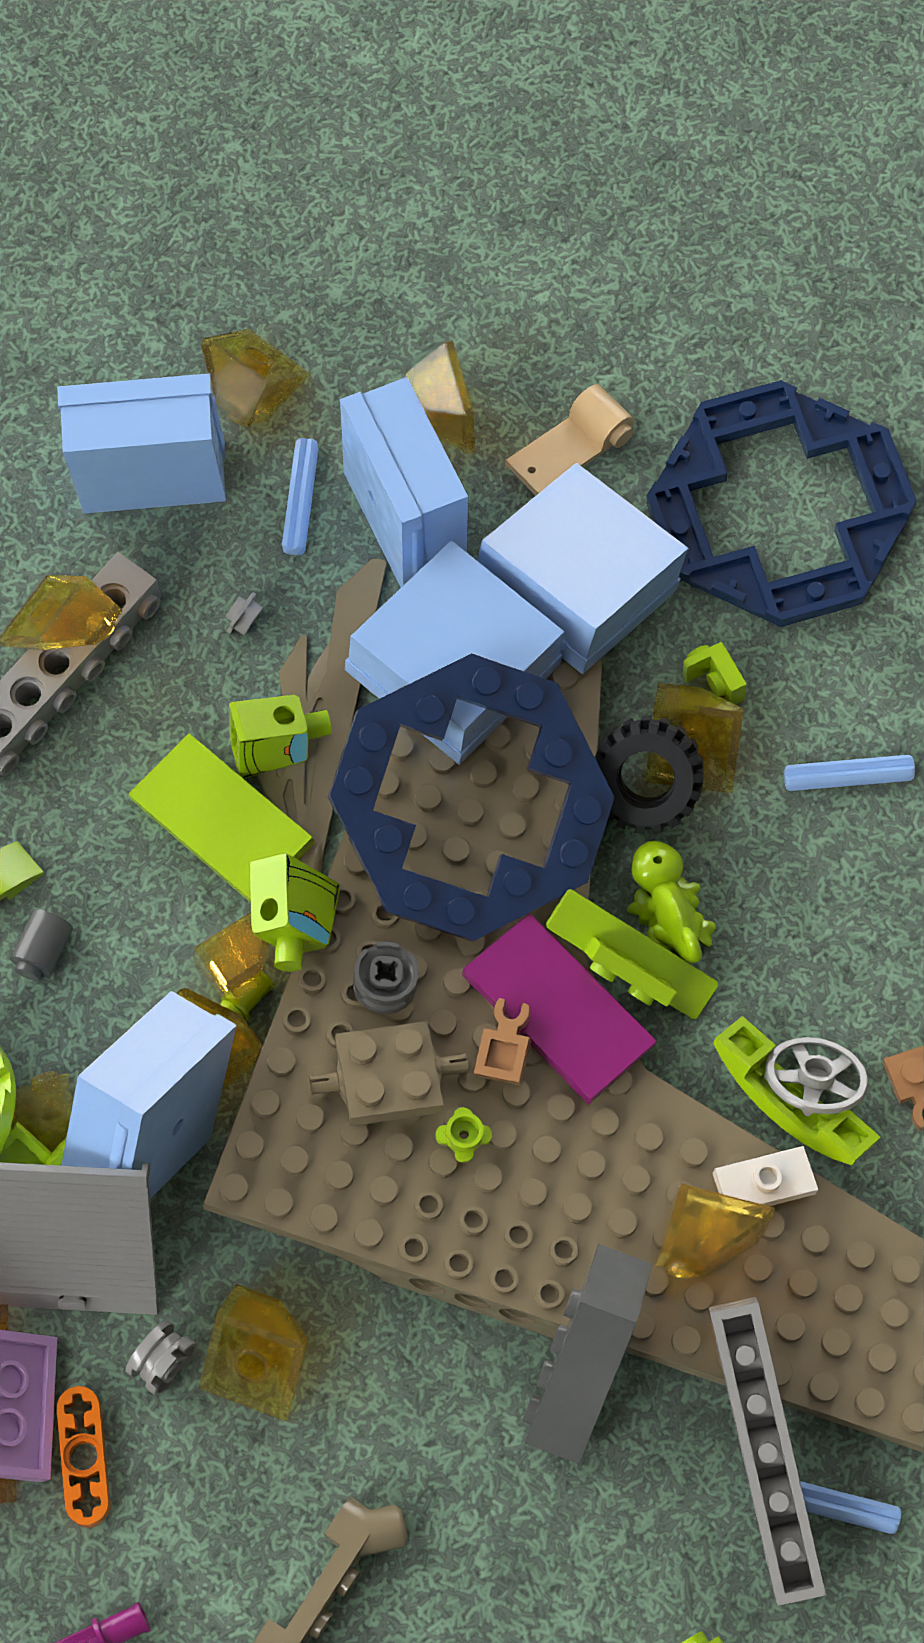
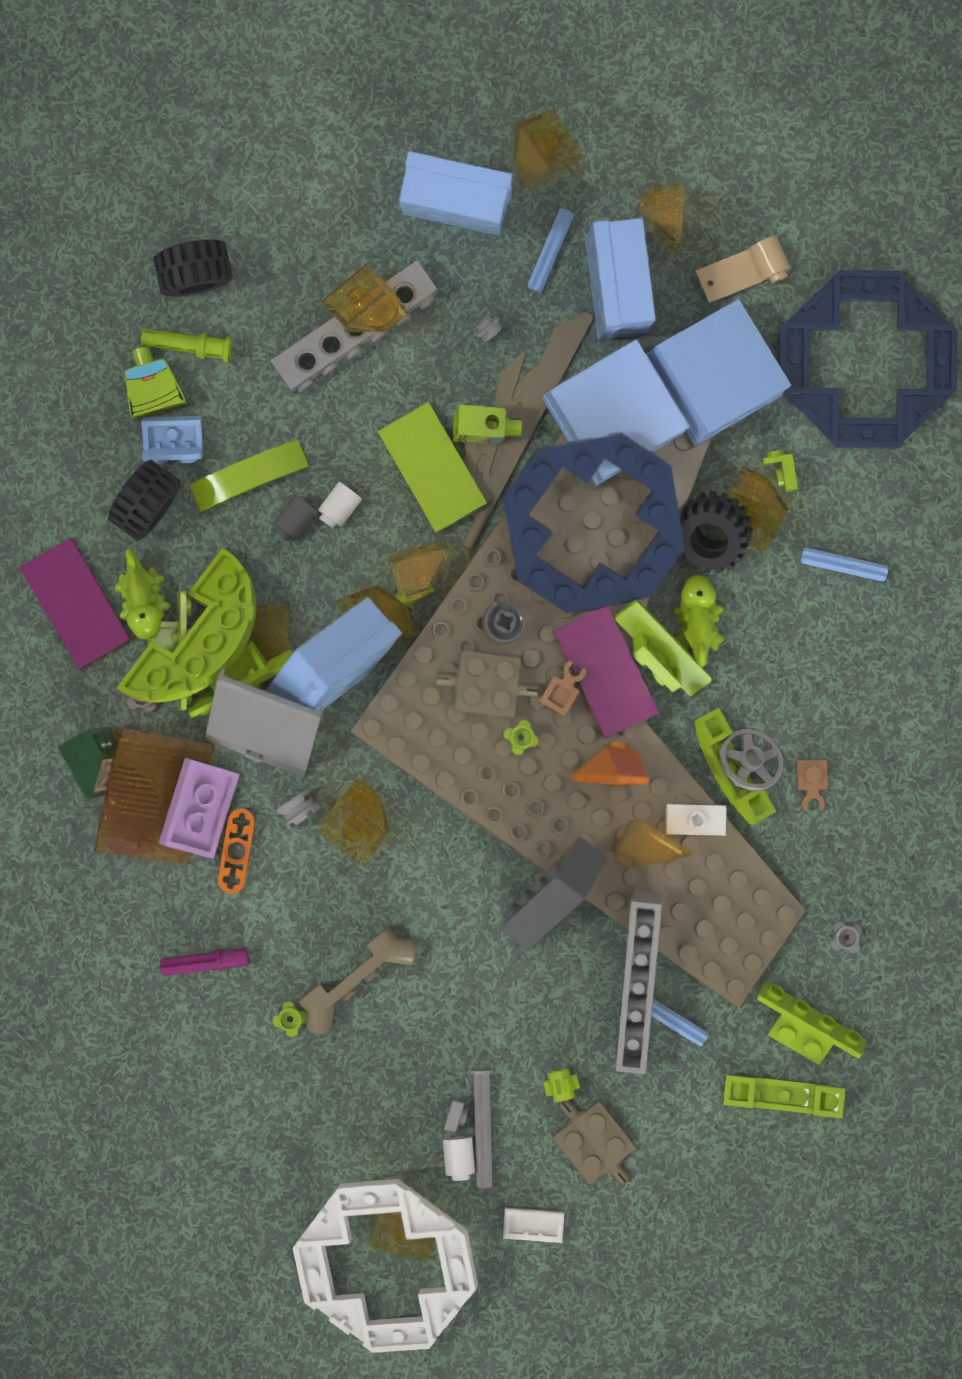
camera: 15 degrees right, 20 degrees up
(100, 908) = (338, 505): none -> white brick
(291, 908) = (458, 561): lime torso -> none
(616, 1135) = (613, 766): none -> orange wedge

